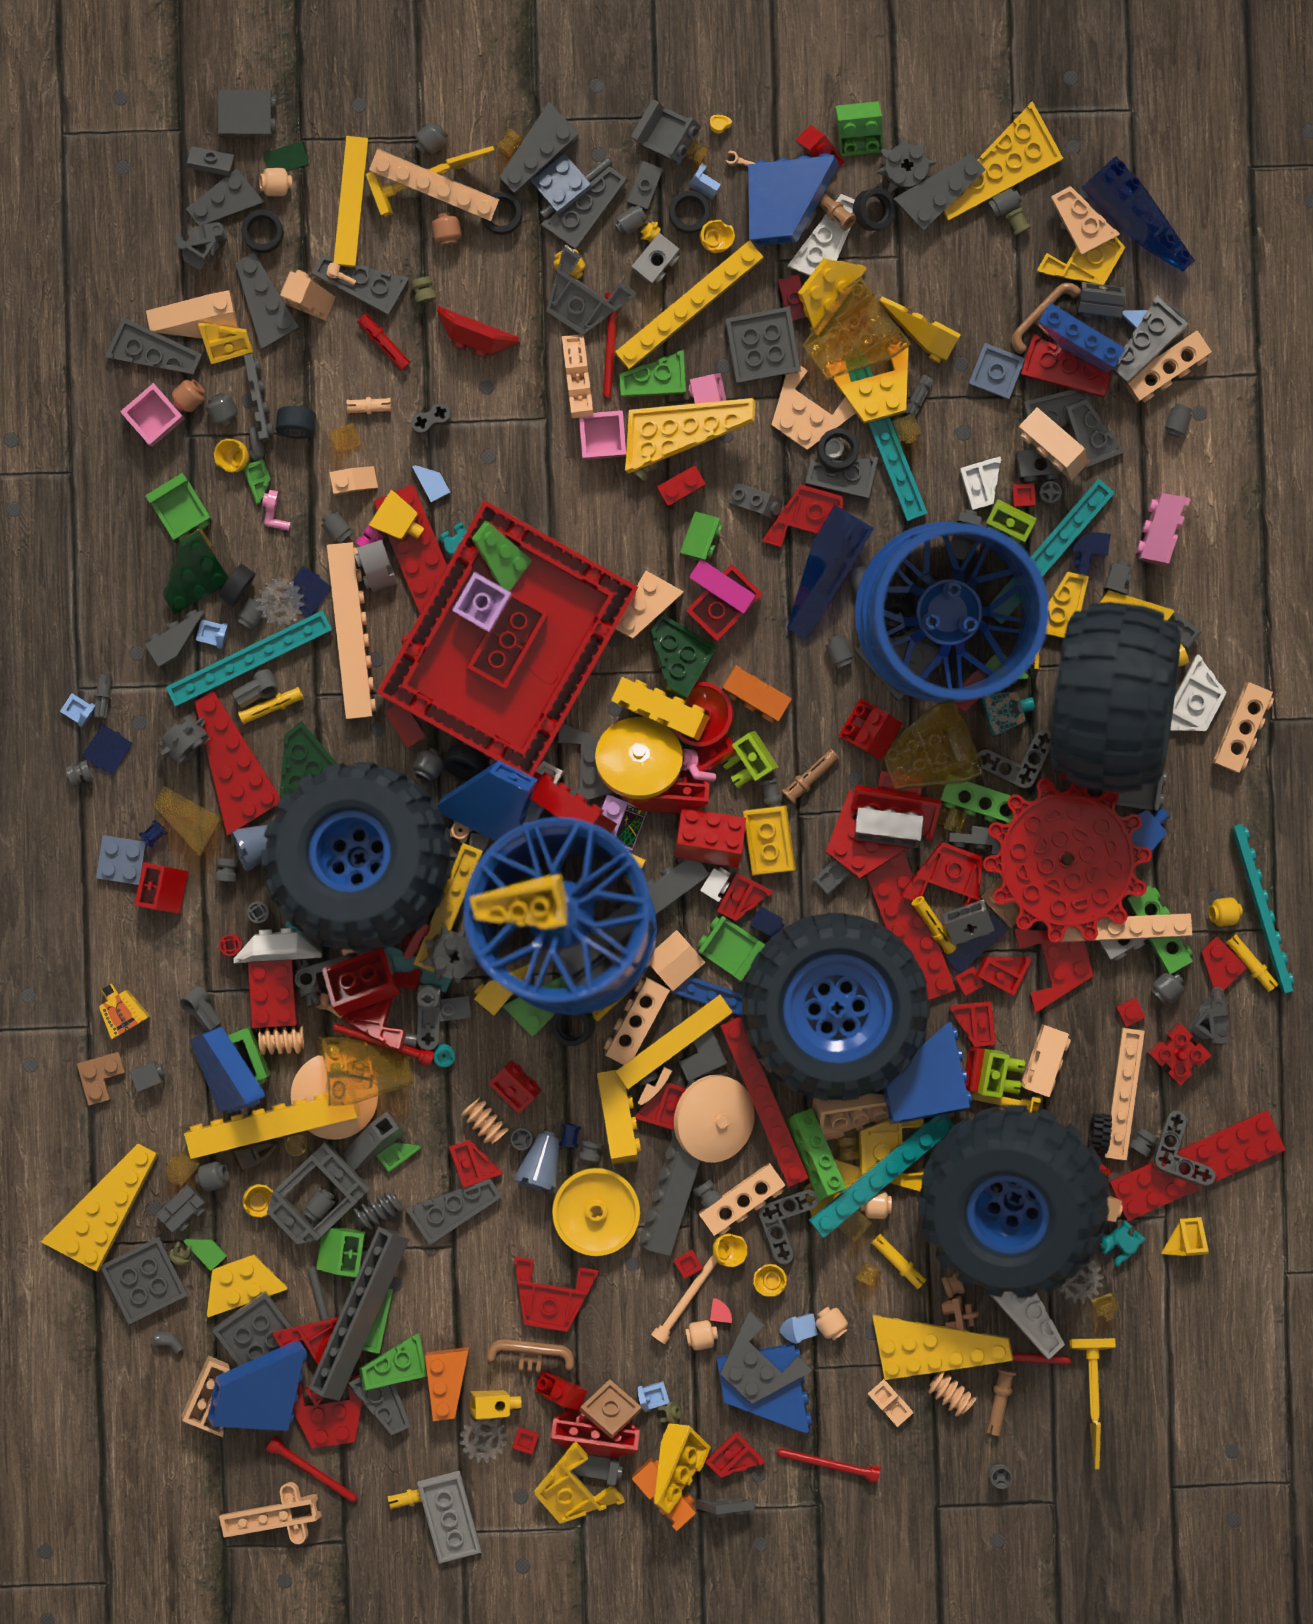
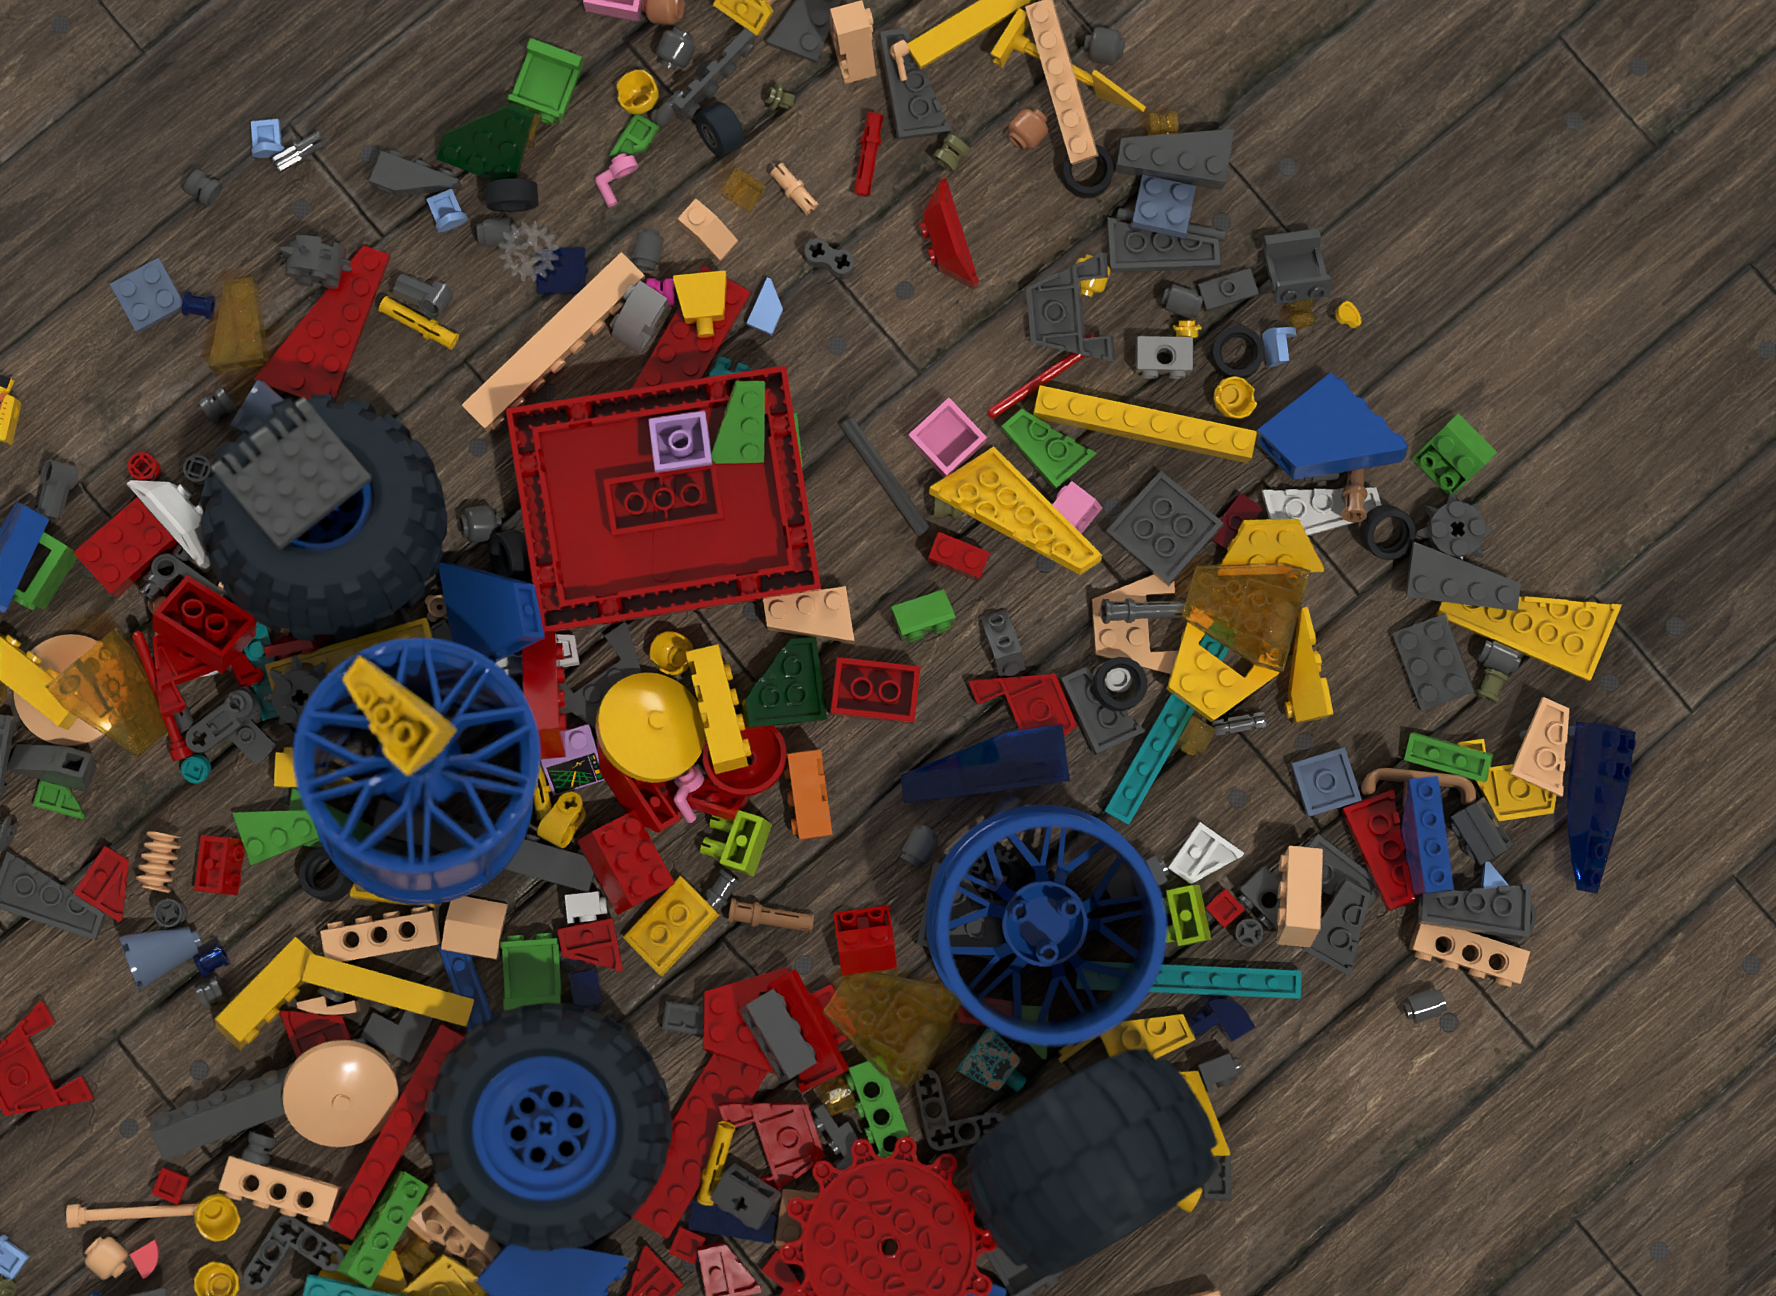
camera: 40 degrees right, 5 degrees down
(107, 749) = (249, 197): clear blue piece -> none
(161, 887) = (148, 354): red slope -> none
(249, 658) = (449, 265): teal plate -> none
(281, 1040) = (83, 593): light nougat piece -> none
(301, 757) = (392, 391): dark green plate -> none
(302, 371) = (776, 97): none -> olive plate
(326, 853) = (293, 478): none -> dark grey hinge
(405, 725) = (501, 472): red tile -> none
(522, 1037) = (274, 832): none -> bright green wing
(577, 376) = (986, 368): light nougat slope -> none
(594, 492) = (885, 476): none -> dark grey axle
(596, 1211) = (151, 1048): yellow dish -> none
(601, 710) = (669, 652): none -> yellow hair
(653, 855) = (563, 820): none -> yellow piece
(722, 586) = (889, 674): dark pink tile -> none
(737, 160) = (1325, 360): light nougat hand -> none
(798, 407) = (1131, 610): none -> dark grey pin
(816, 143) = (1405, 420): red slope -> none
(976, 245) = (1433, 662): none -> dark grey plate
(1041, 284) = (1448, 757): none -> bright green plate
(1161, 528) = (1302, 1073): bright pink wedge -> none
(1197, 698) = (1159, 1250): white wing -> none

